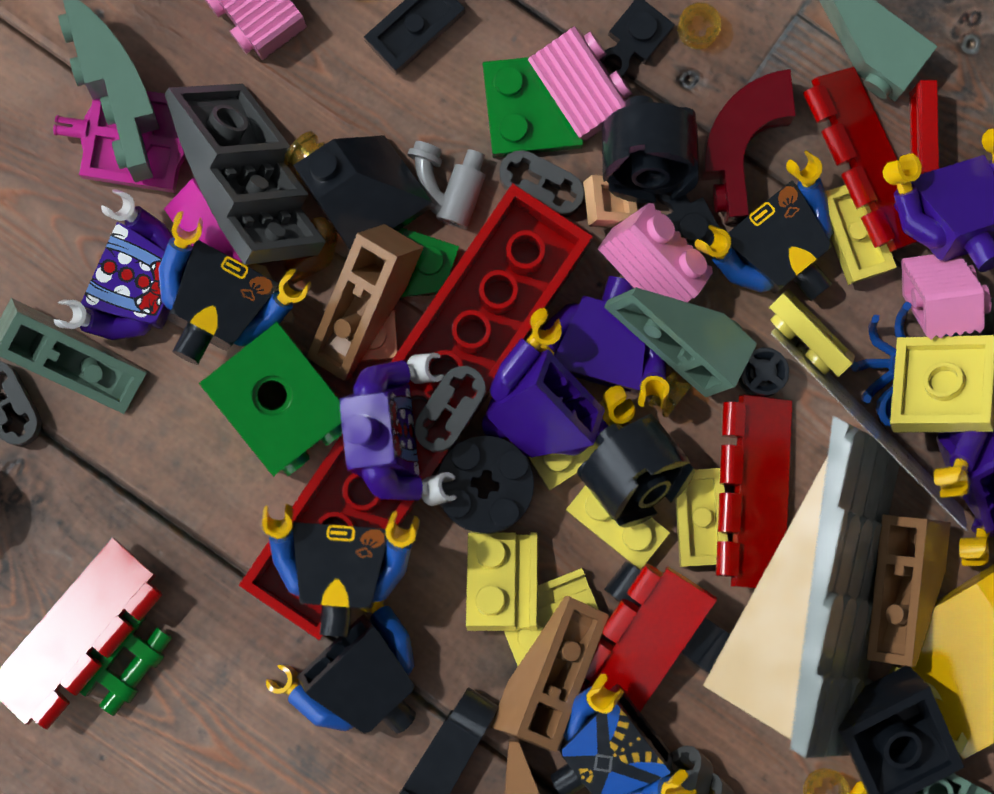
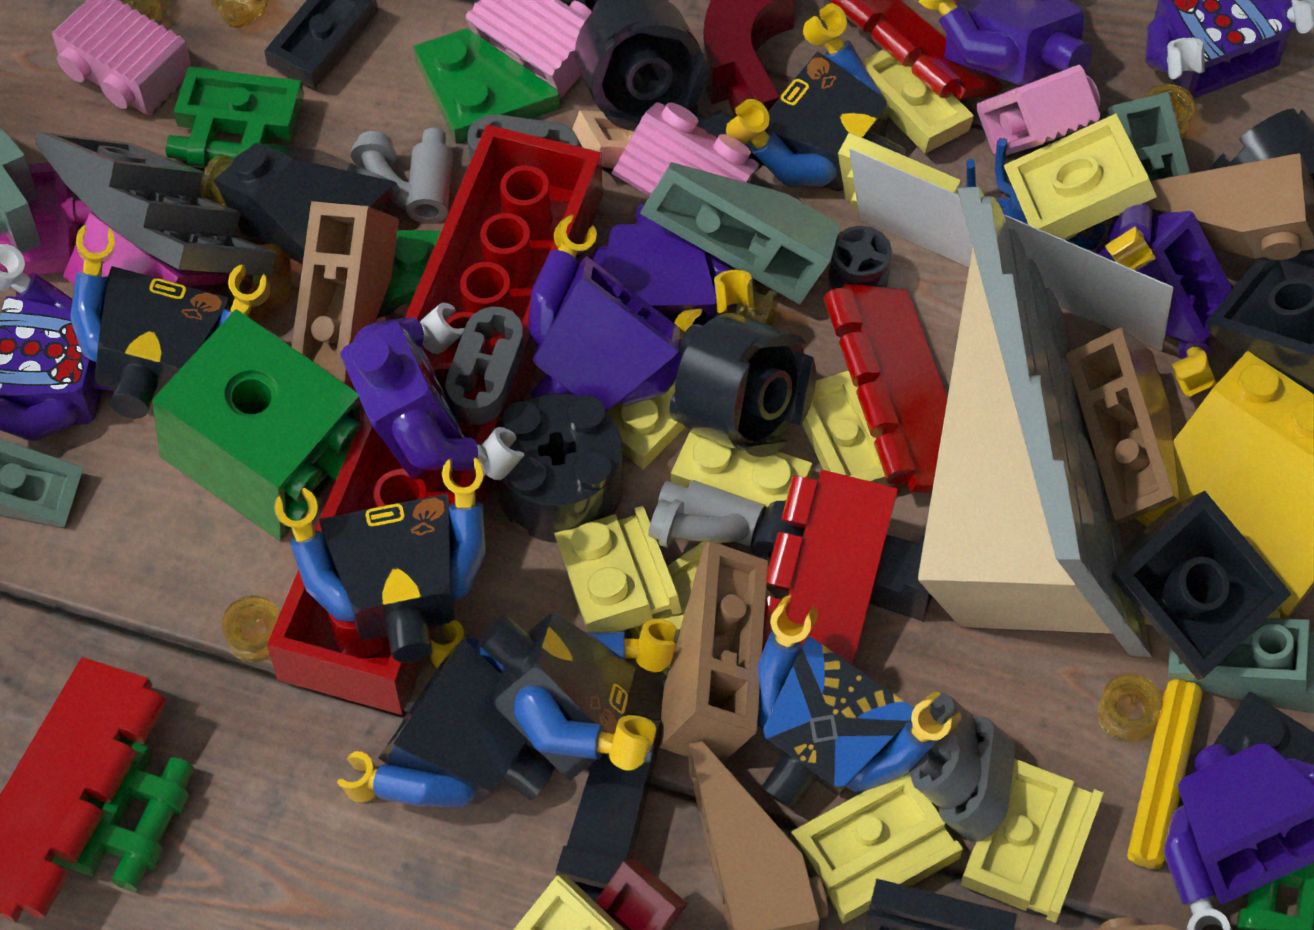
camera: 15 degrees left, 25 degrees down
(237, 526) = (248, 612): none -> clear yellow bush
(332, 78) = (232, 104): none -> green plate
(436, 682) = (573, 688): none -> torso
(596, 557) = (704, 515): none -> light grey plant

